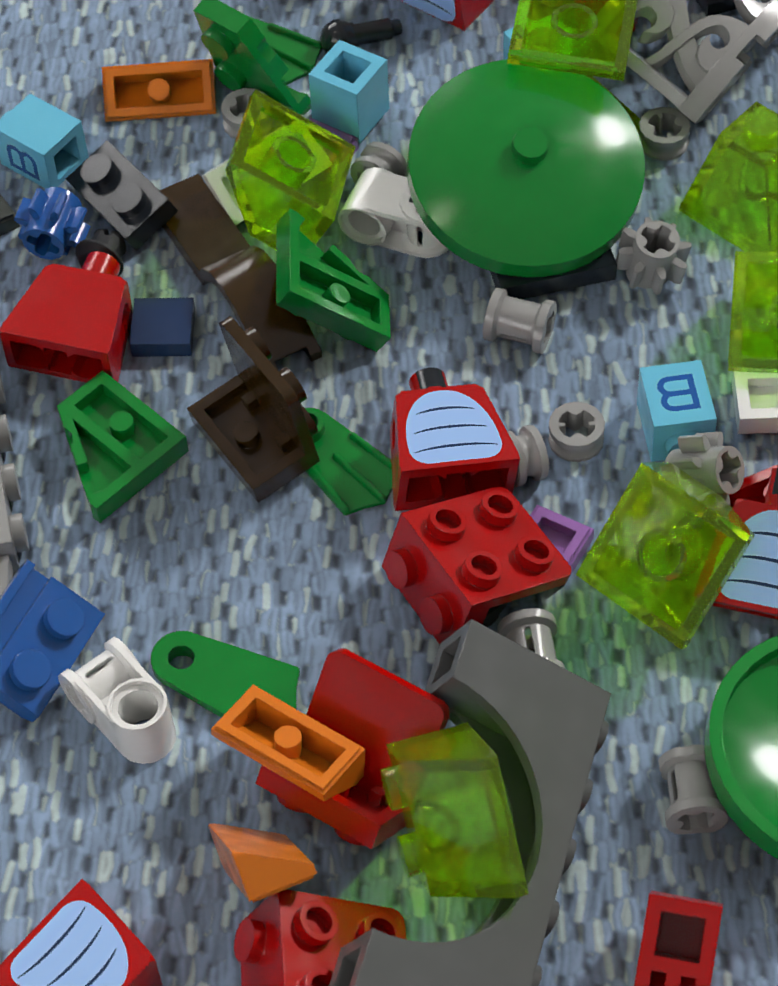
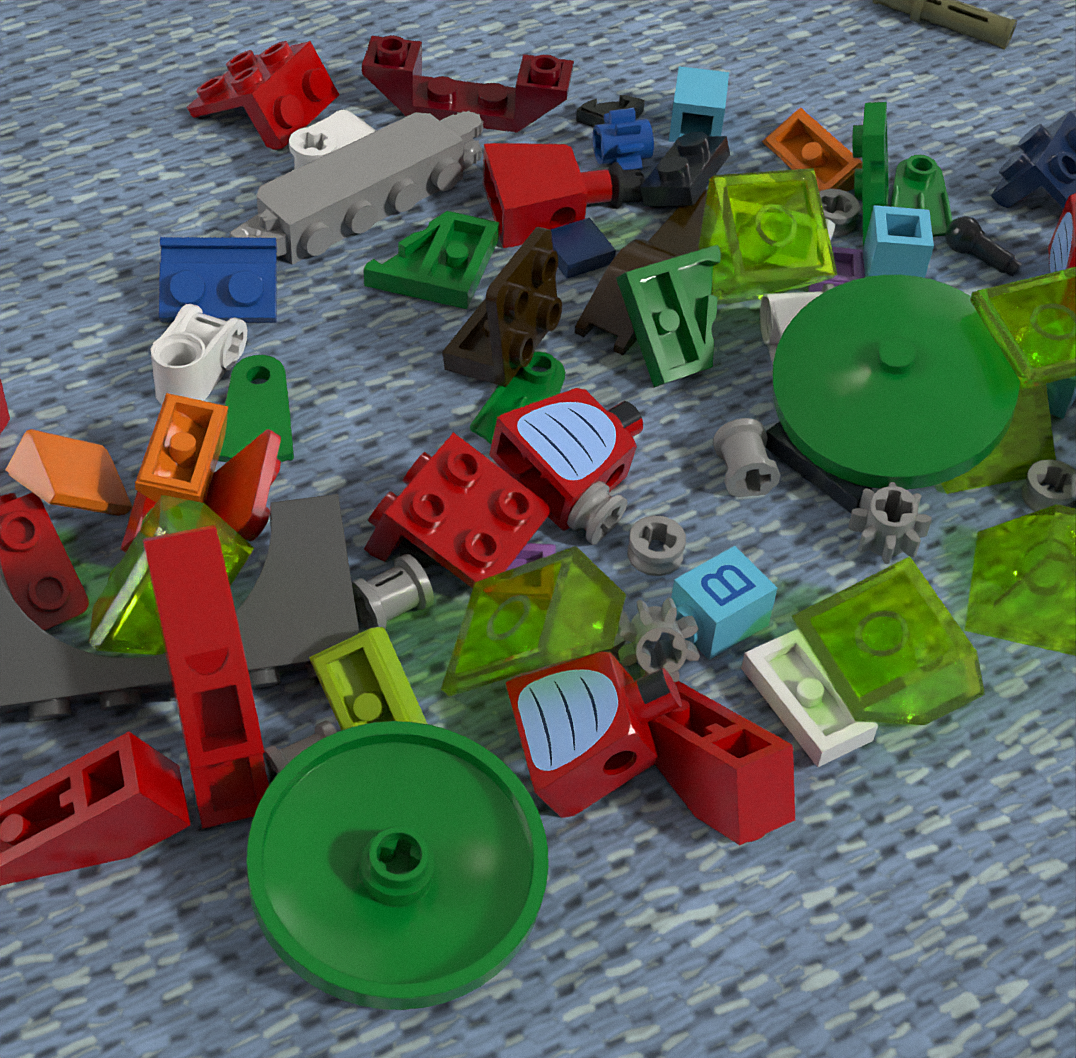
camera: 55 degrees right, 5 degrees down
(614, 797) = (208, 673): none -> red slope
(652, 706) = (366, 681): none -> lime slope

